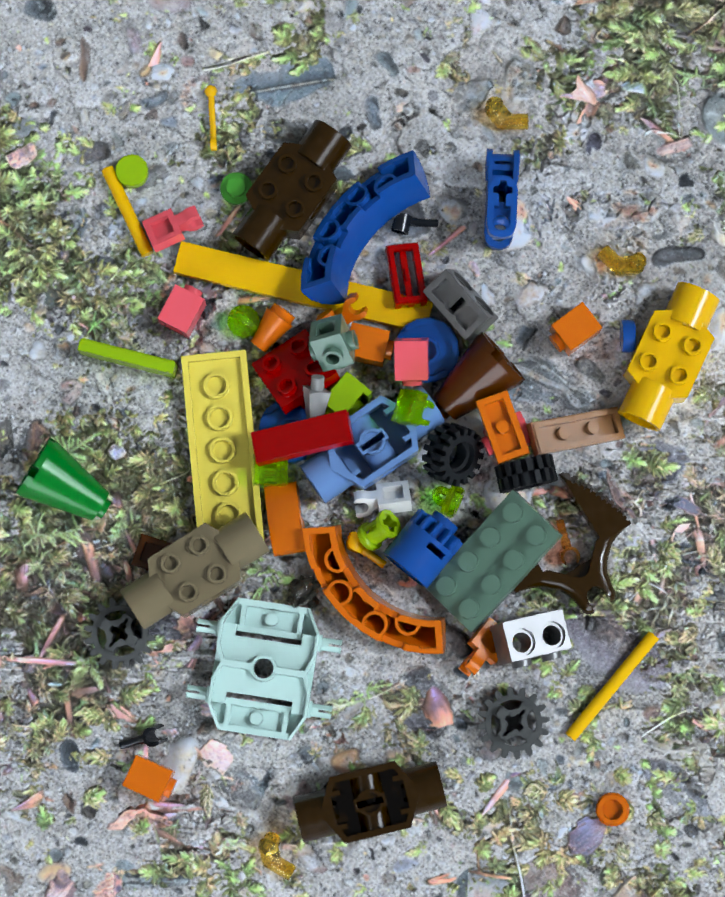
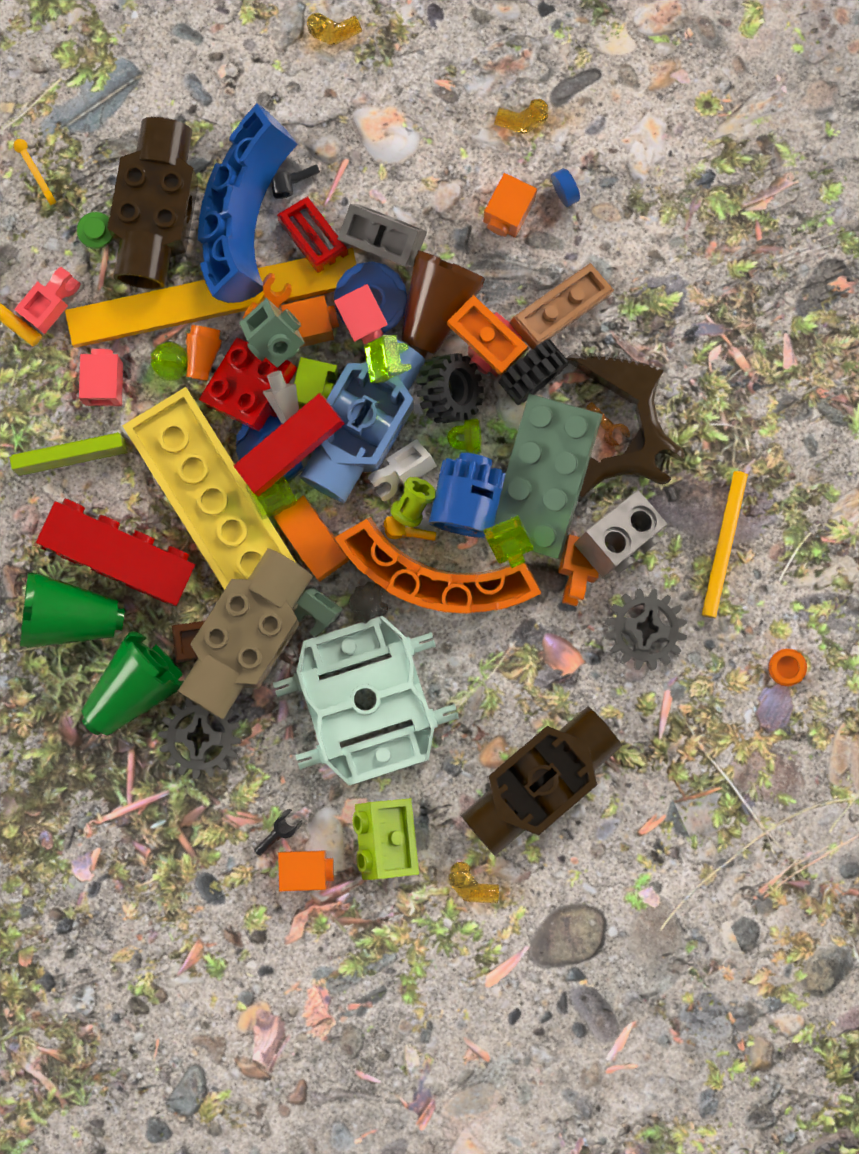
camera: 30 degrees left, 0 degrees up
(86, 566) = (130, 685): none -> green cone
(124, 456) = (114, 552): none -> red wedge
(225, 786) = (386, 839): none -> lime bracket
(264, 576) = (319, 607): none -> sand green tile
(438, 600) = (509, 541): none -> clear neon green tile
(502, 180) = (371, 109): blue piece -> none
(669, 356) = (617, 186): yellow brick -> none

